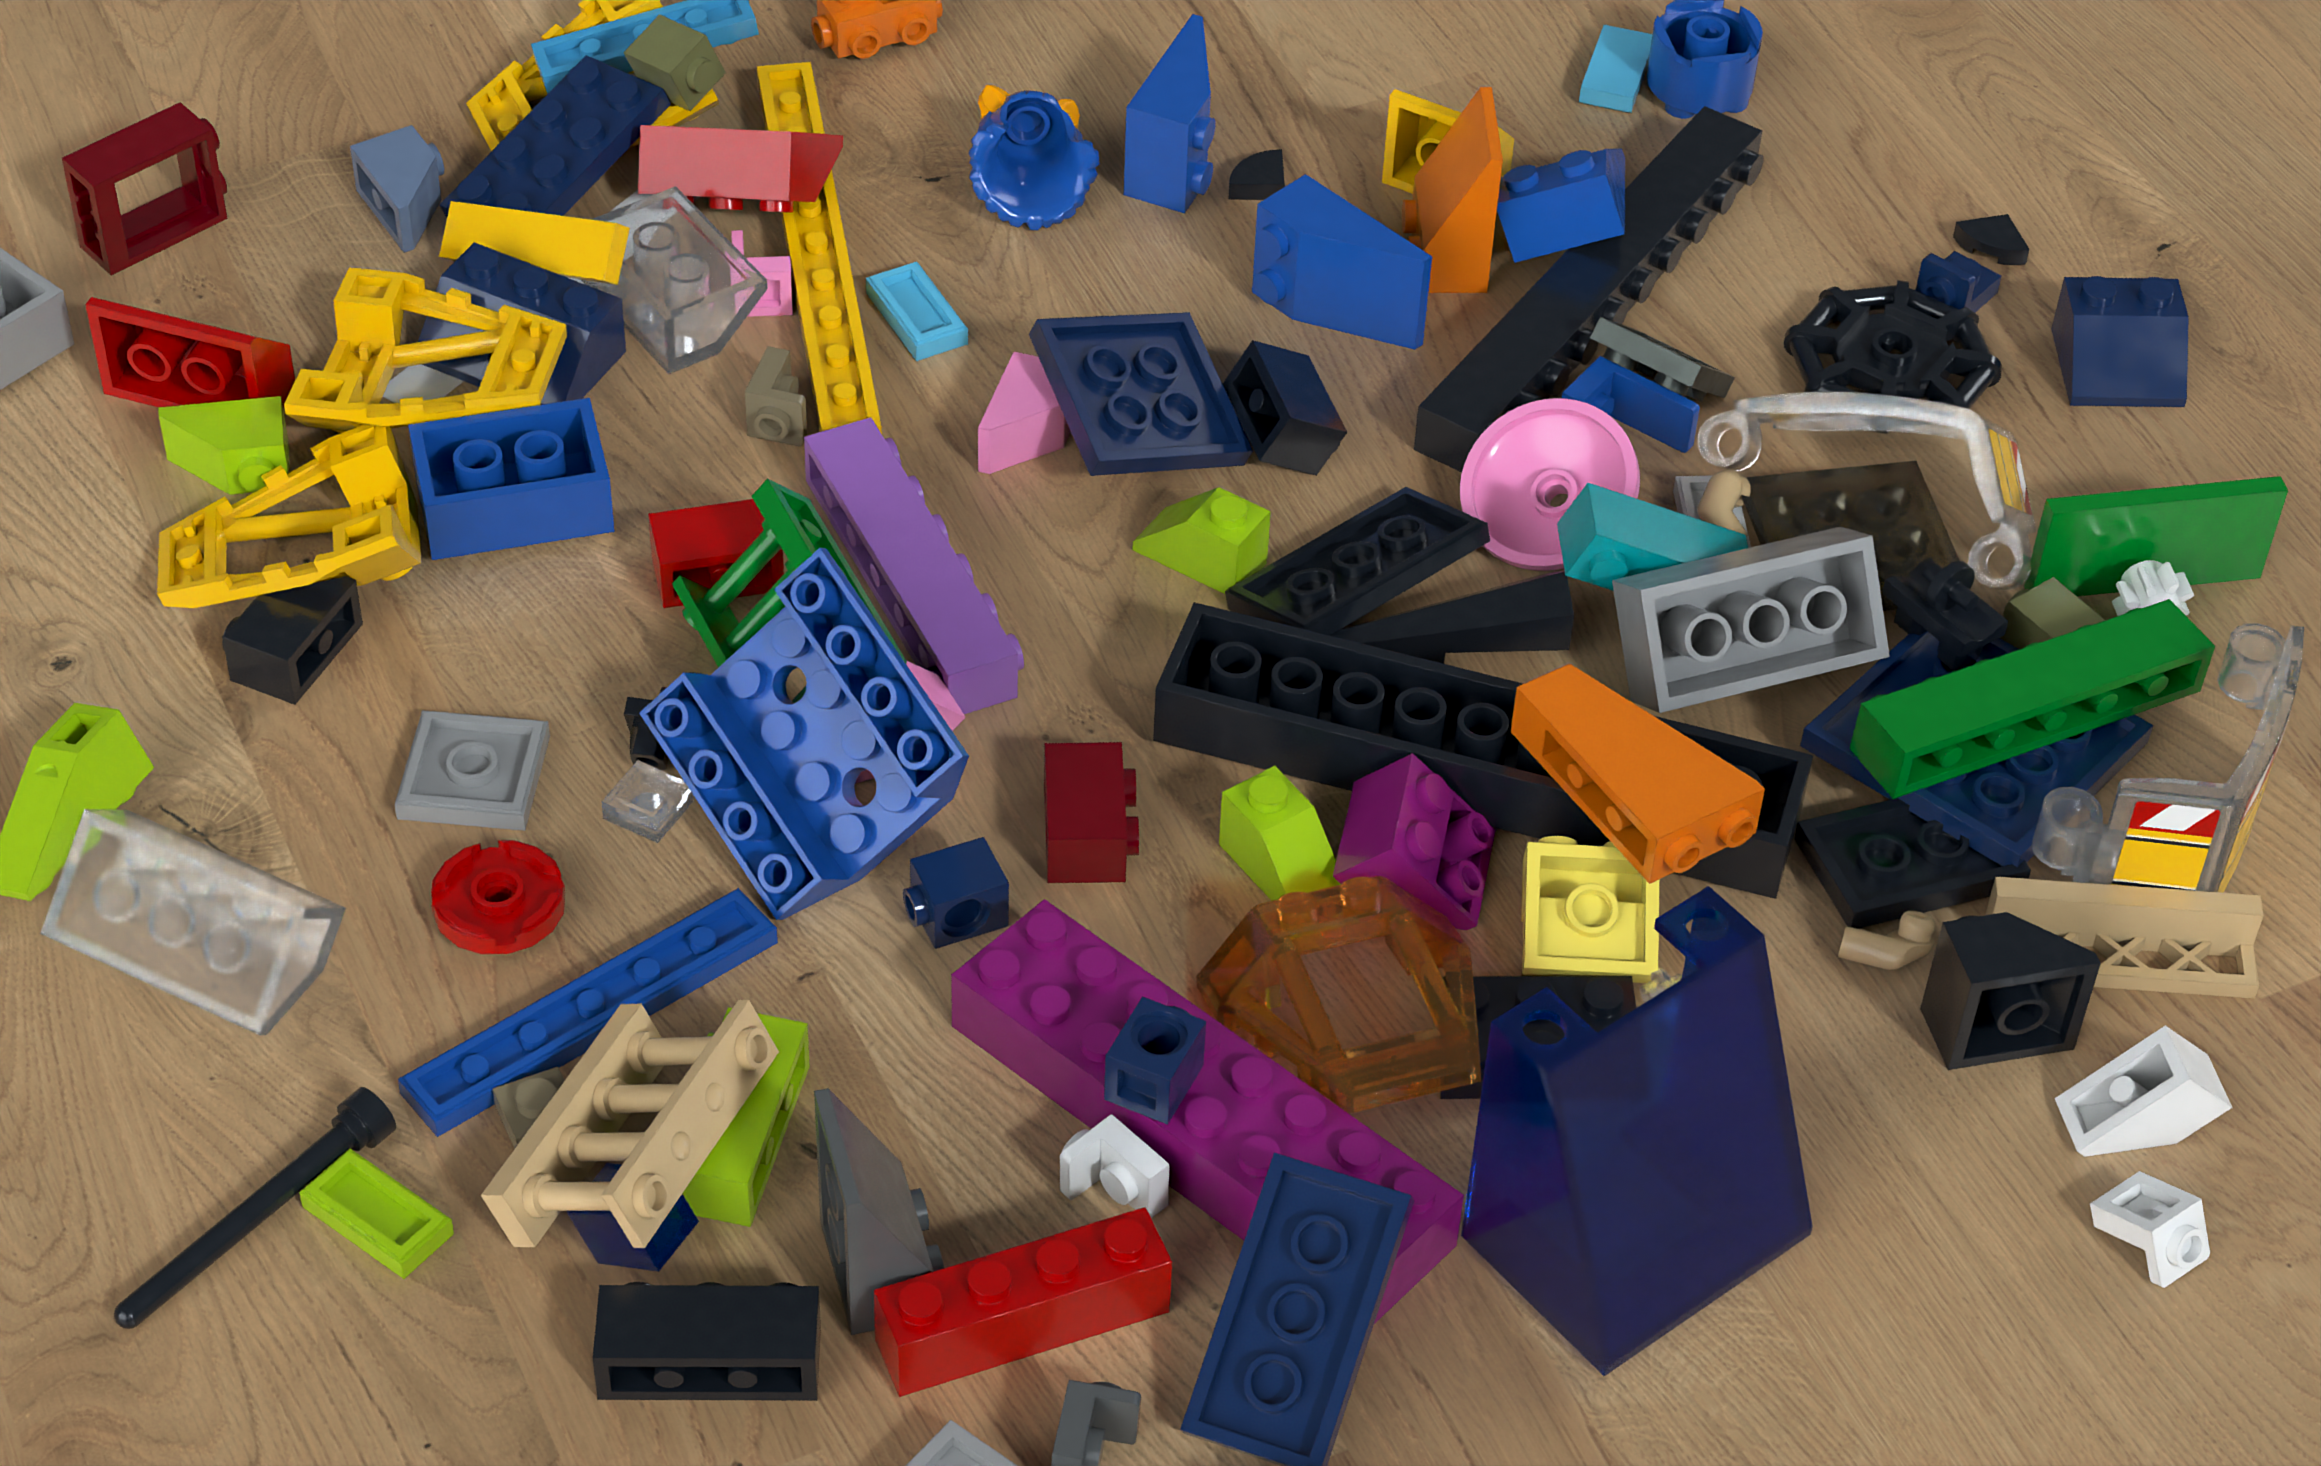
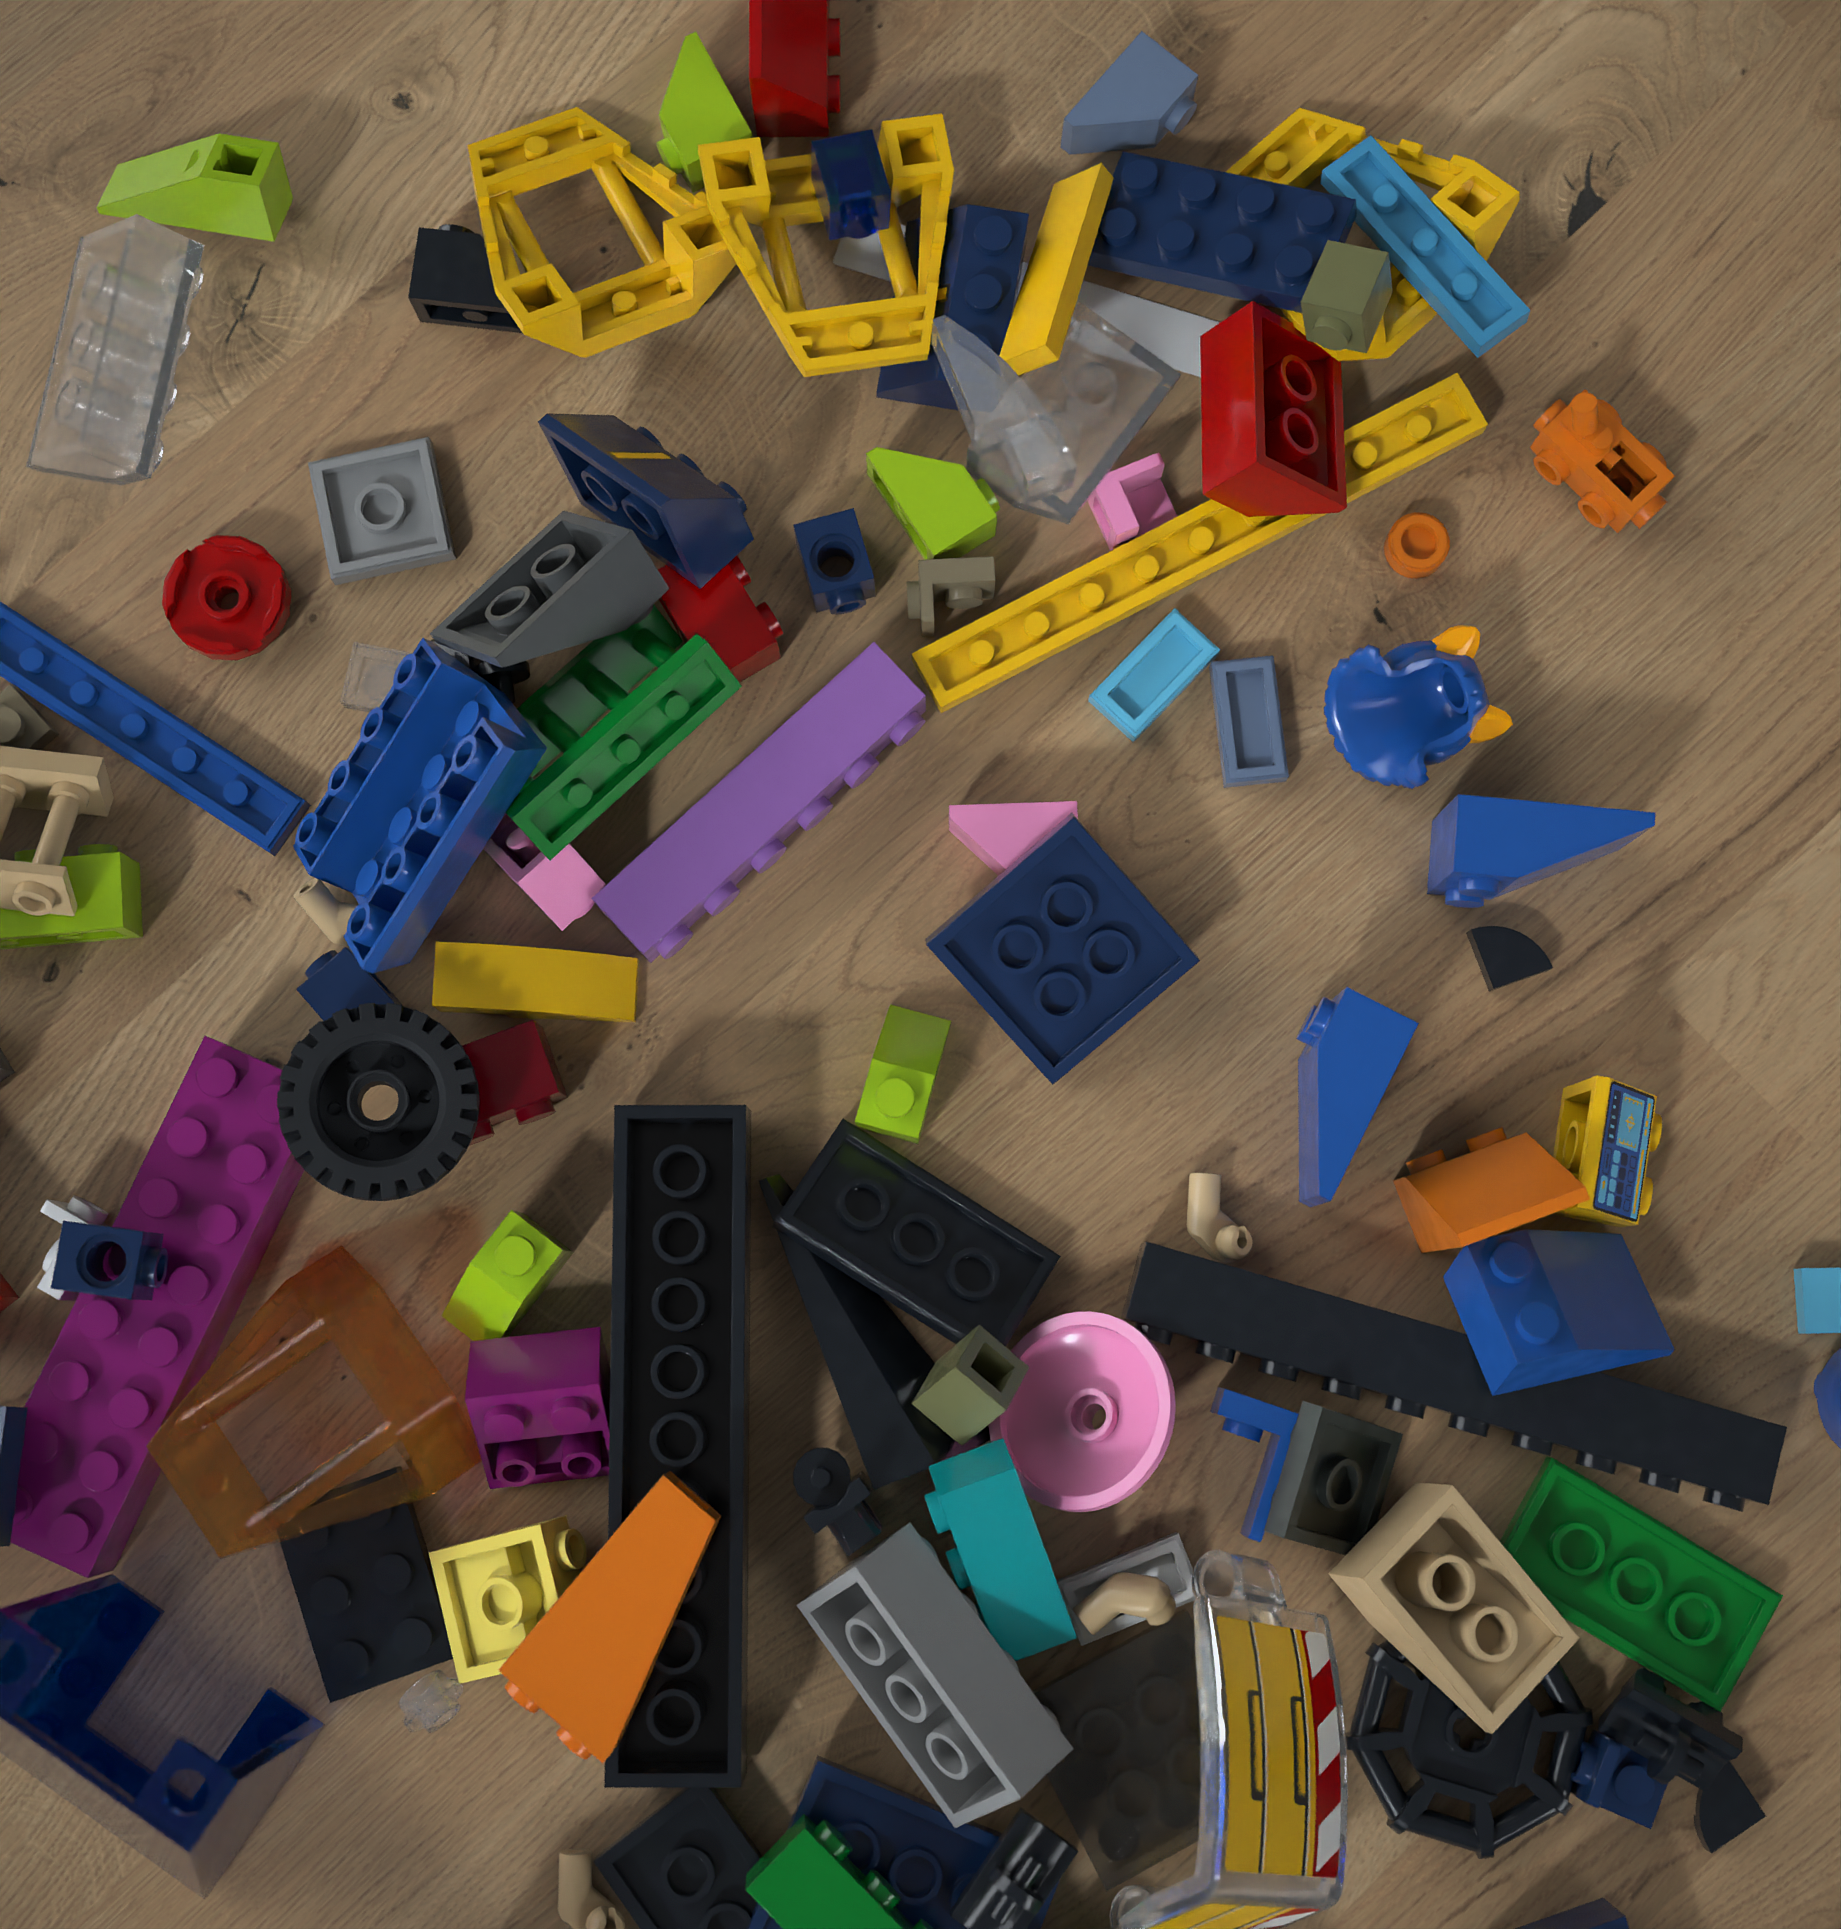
camera: 75 degrees right, 35 degrees up
(379, 337) = (850, 185): none -> clear blue brick
(511, 478) = (728, 386): blue brick -> none
(591, 533) = (659, 496): none -> dark blue slope
(645, 603) = (557, 592): none -> dark grey slope
(651, 274) = (1003, 412): none -> clear slope
(689, 391) = (934, 502): none -> lime slope
(709, 462) = (830, 537): none -> dark blue brick
(873, 892) = (325, 910): none -> tan arm
(886, 138) = (1416, 545): none -> orange tile
(987, 267) = (1248, 721): none -> sand blue tile
(1003, 763) = (534, 982): none -> yellow slope
(1082, 836) = (325, 1092): none -> black wheel
(1284, 408) = (1111, 1101): black brick -> none
(1402, 395) = (1210, 1225): none -> tan arm
(1504, 537) = (970, 1385): none -> olive brick
(1582, 639) = (837, 1500): none -> black hips
(1779, 312) = (1455, 1603): none -> tan slope
(1800, 243) = (1638, 1583): none -> green tile
(1931, 228) = (1669, 1733): none -> black hips

